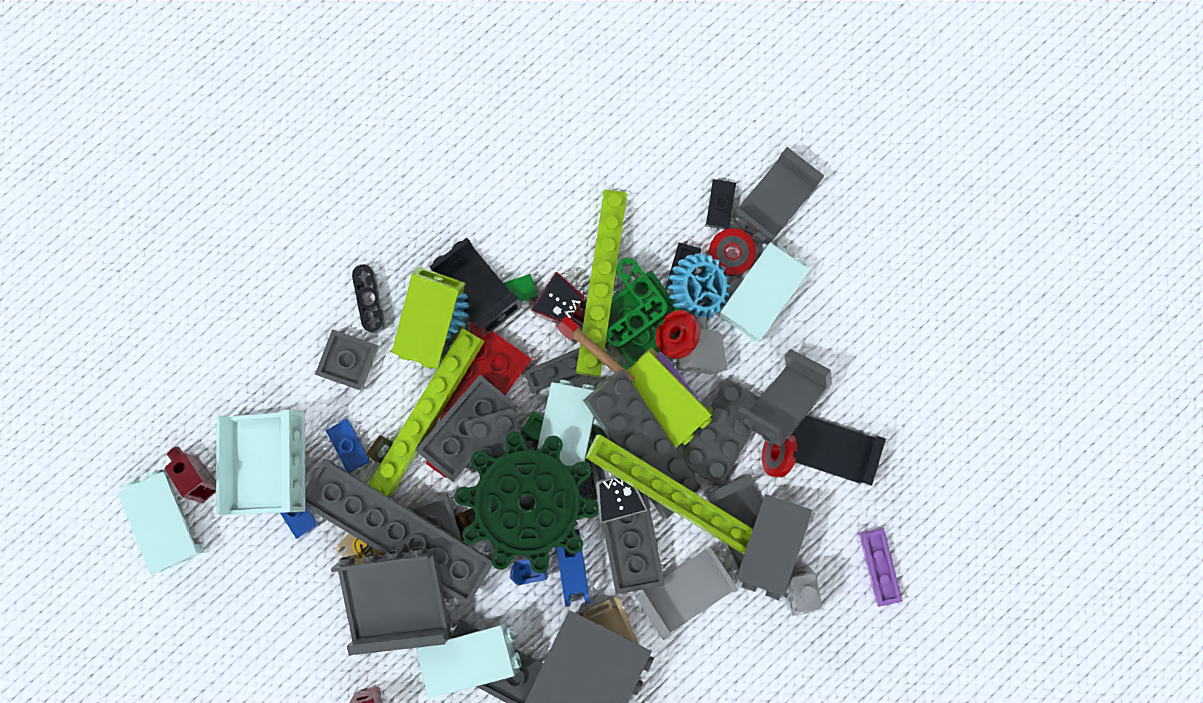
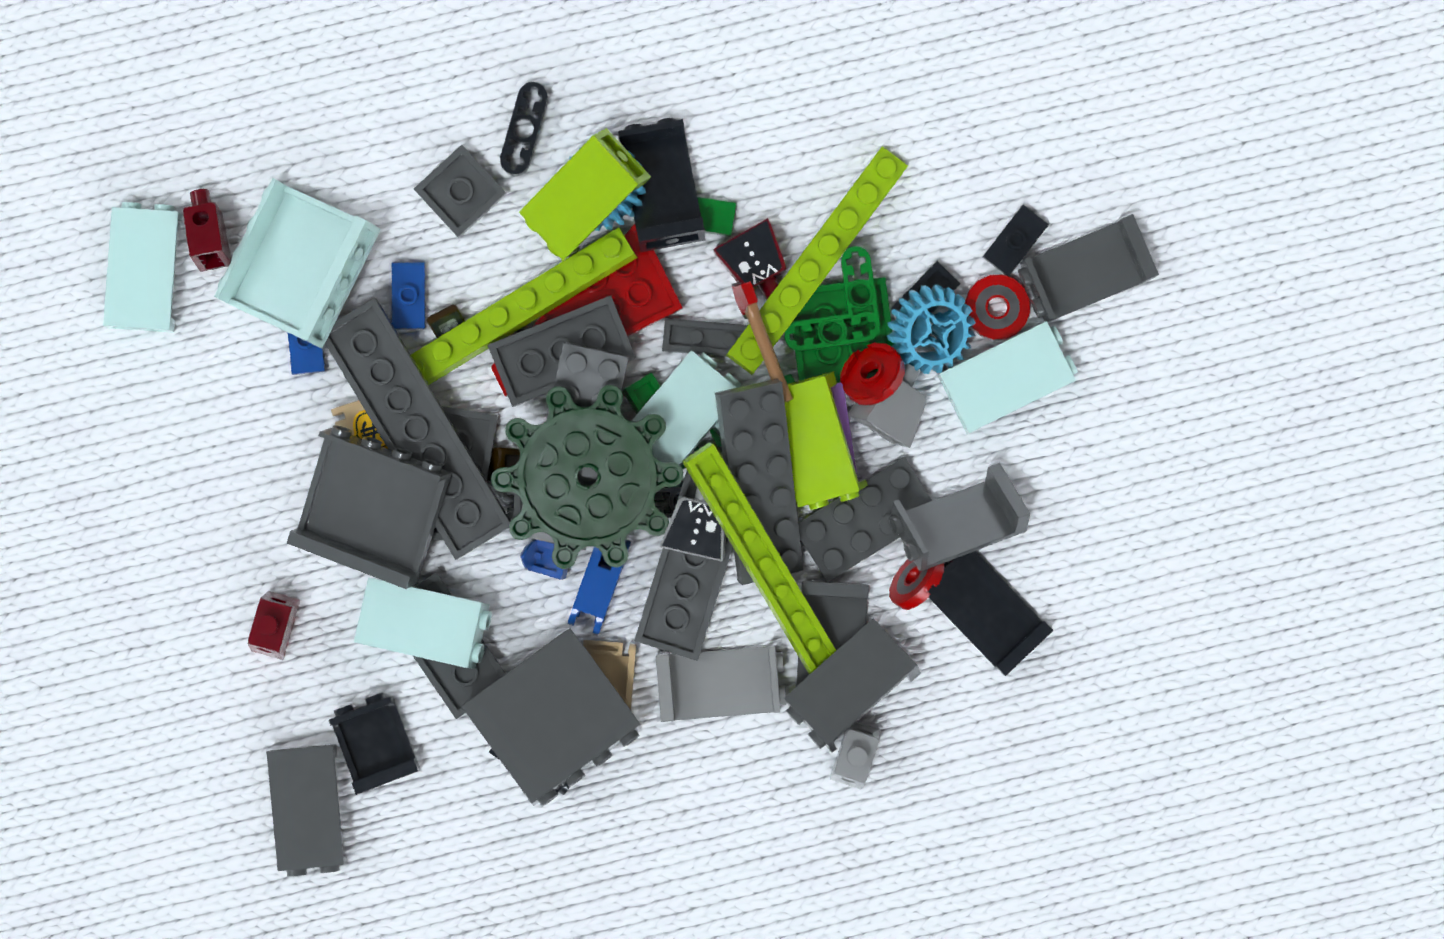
camera: 30 degrees right, 5 degrees up
(880, 567) = (964, 778): medium lavender tile -> none

